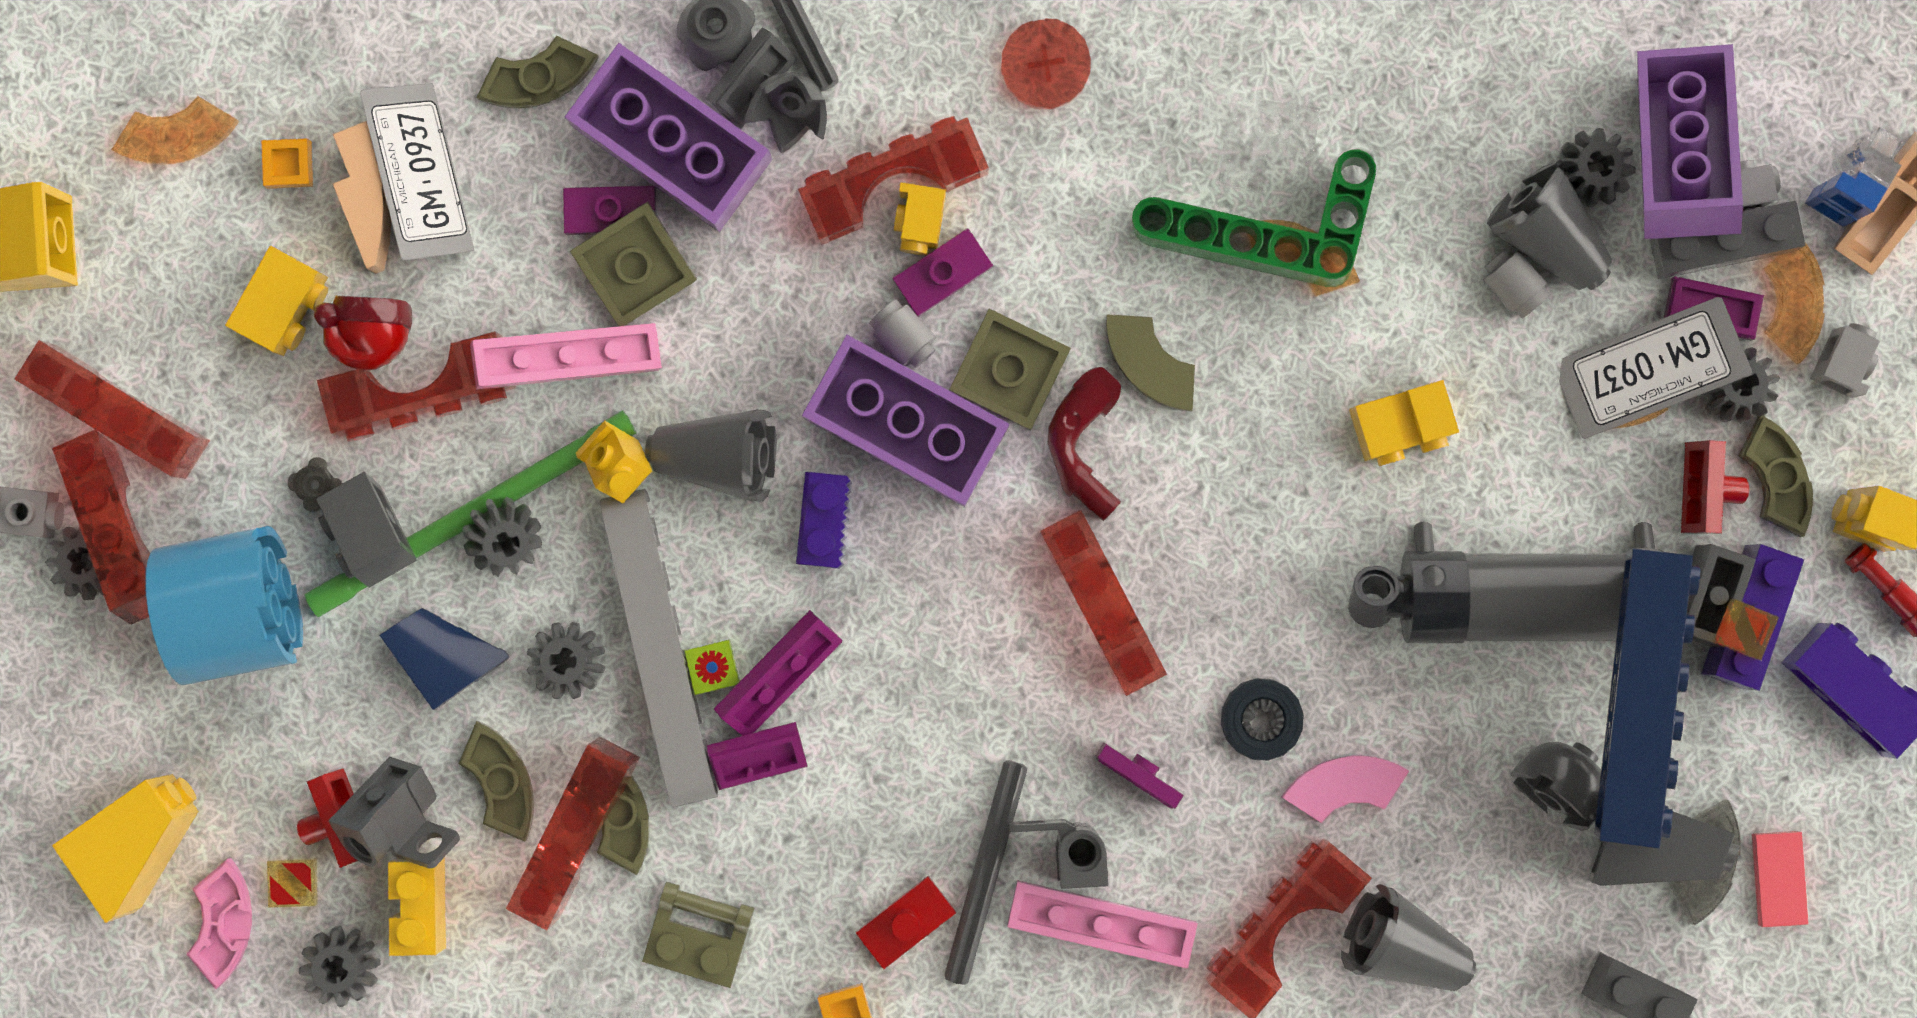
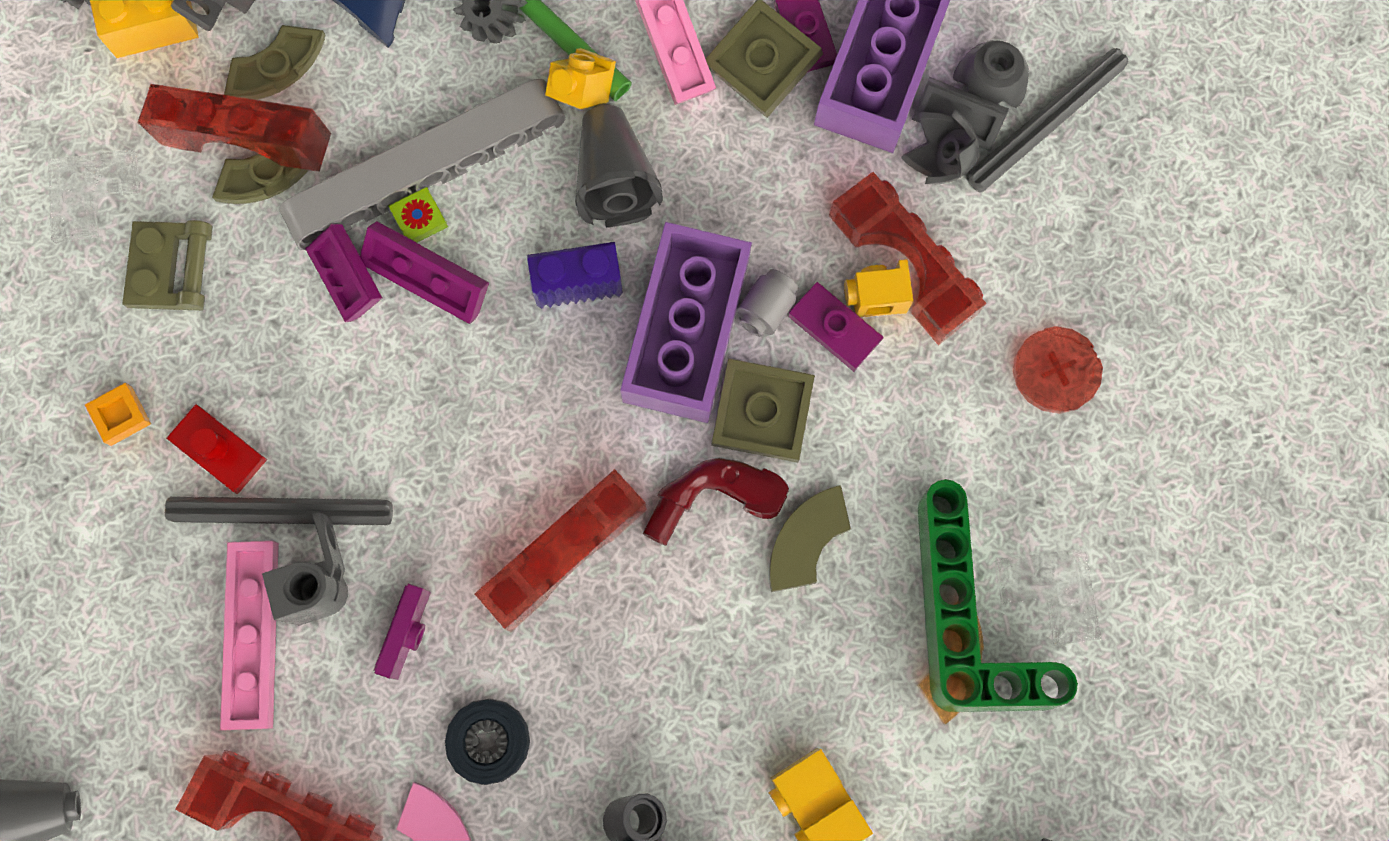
camera: 75 degrees right, 10 degrees down
(572, 675) = (408, 93): dark grey gear -> none

